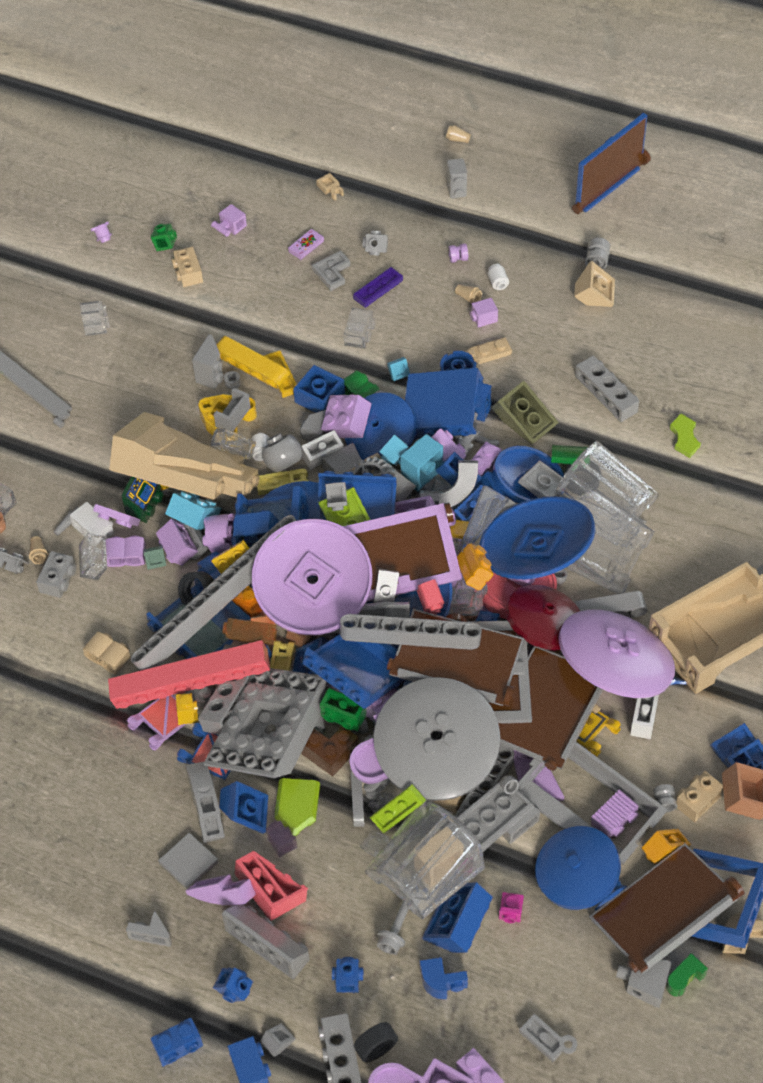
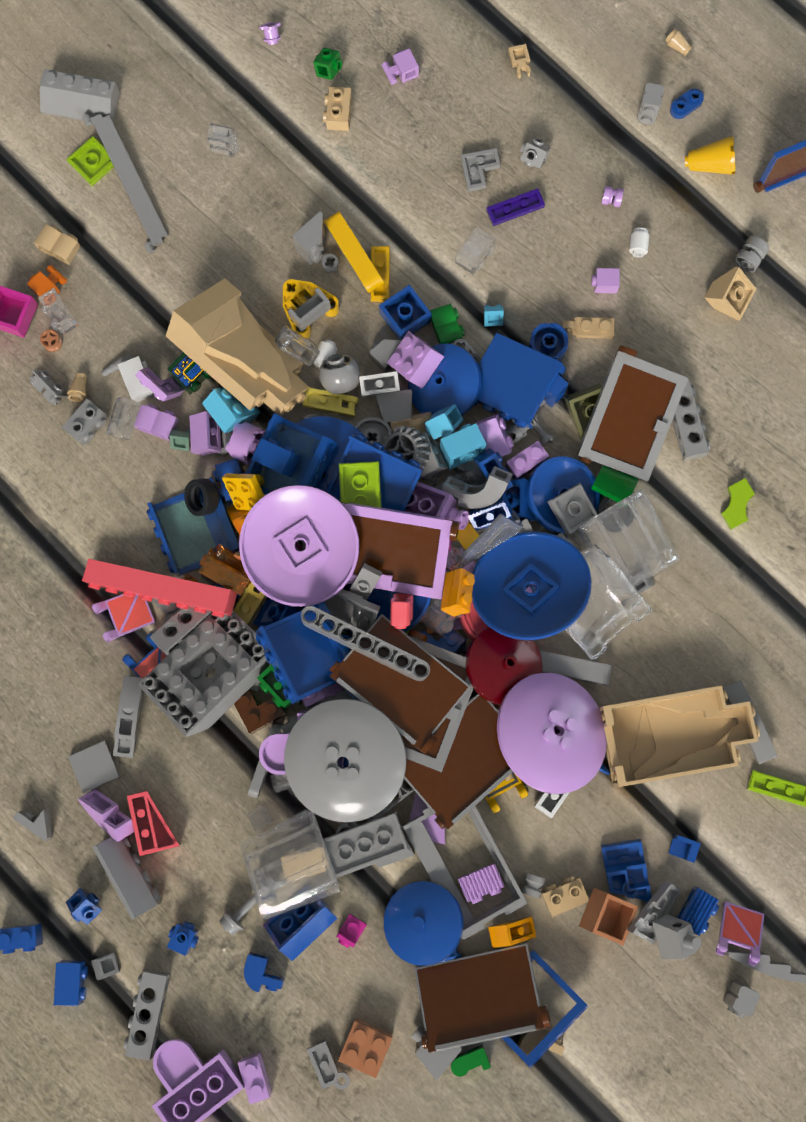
camera: 25 degrees right, 25 degrees up
(106, 652) = (100, 526): tan brick -> none
(186, 709) = (146, 617): yellow brick -> none
(202, 607) = (199, 524): light grey beam -> none
(245, 805) = (159, 739): blue slope -> none
(281, 838) = (179, 779): clear purple brick -> none
(297, 803) = (208, 752): lime tile -> none
(306, 244) = (467, 124): lavender tile -> none
(336, 496) = (355, 469): light grey bracket -> none
(375, 1042) = (180, 1012): black tyre -> none
(397, 808) = (287, 804): lime tile -> none
(469, 293) = (602, 251): tan cone -> none
(486, 173) = (687, 102): none -> blue plate
(509, 784) = (394, 825): light grey hinge -> none
(529, 199) = (713, 157): none -> yellow cone
(558, 395) = (632, 415): none -> door
(577, 1003) = (365, 1047): none -> nougat piece

